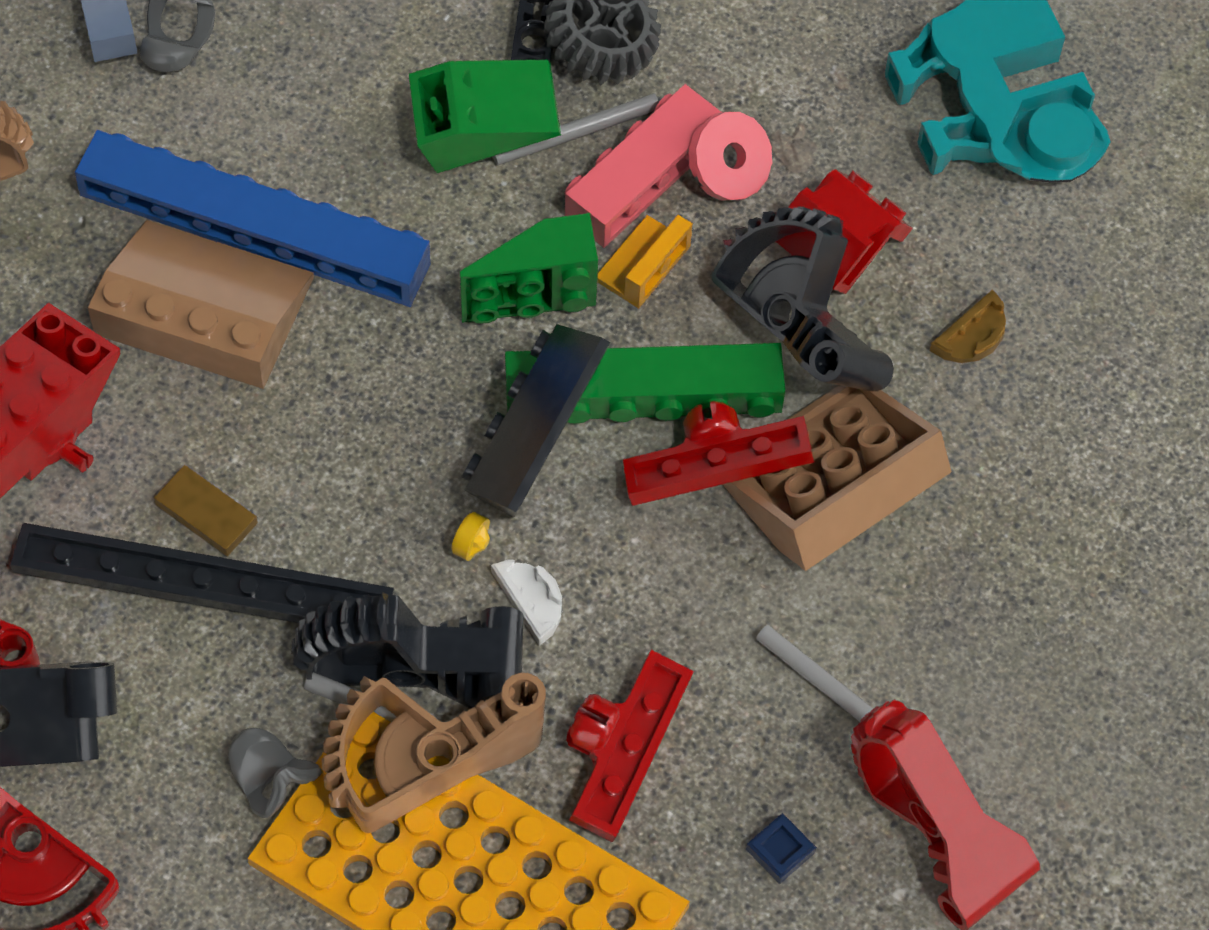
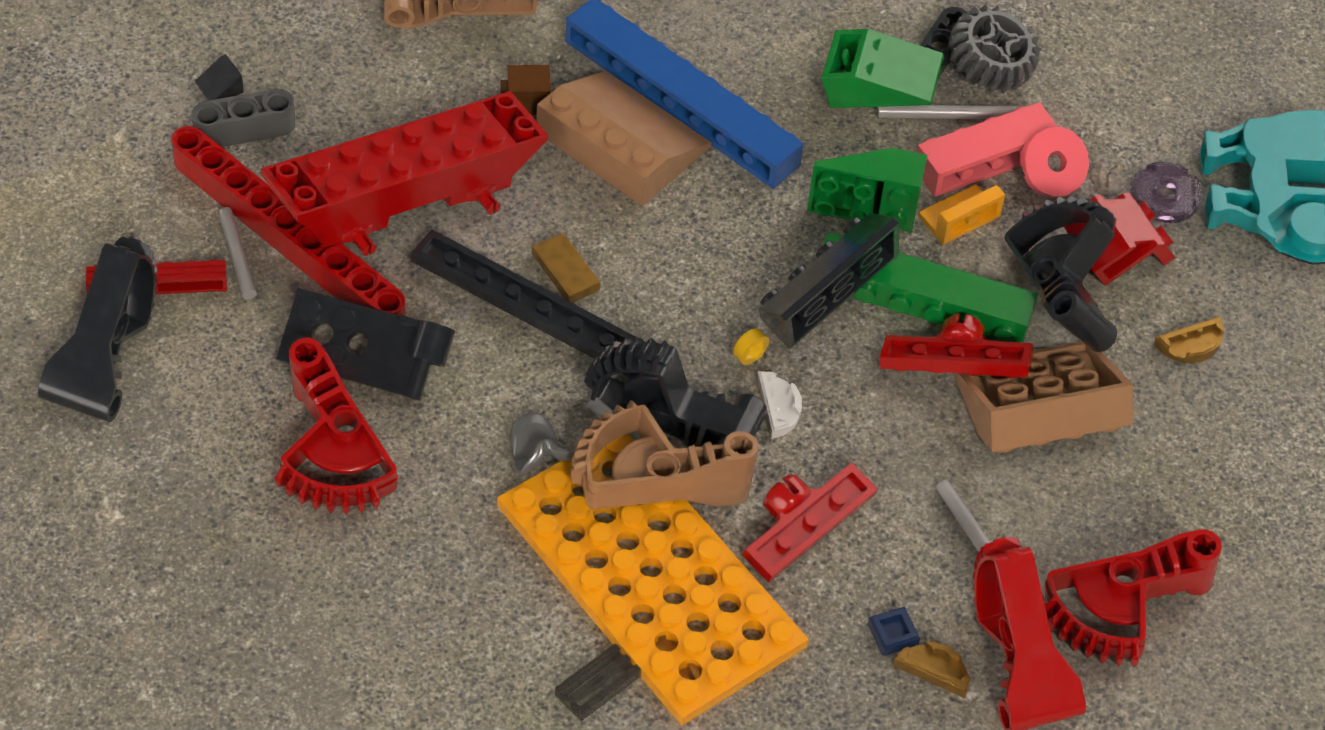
camera: 20 degrees right, 10 degrees down
(62, 281) = (528, 84): none -> reddish brown brick
(847, 873) = (936, 665): none -> pearl gold tile
(869, 122) = (1170, 176): none -> tile
(1035, 714) = (1171, 566): none -> red arm

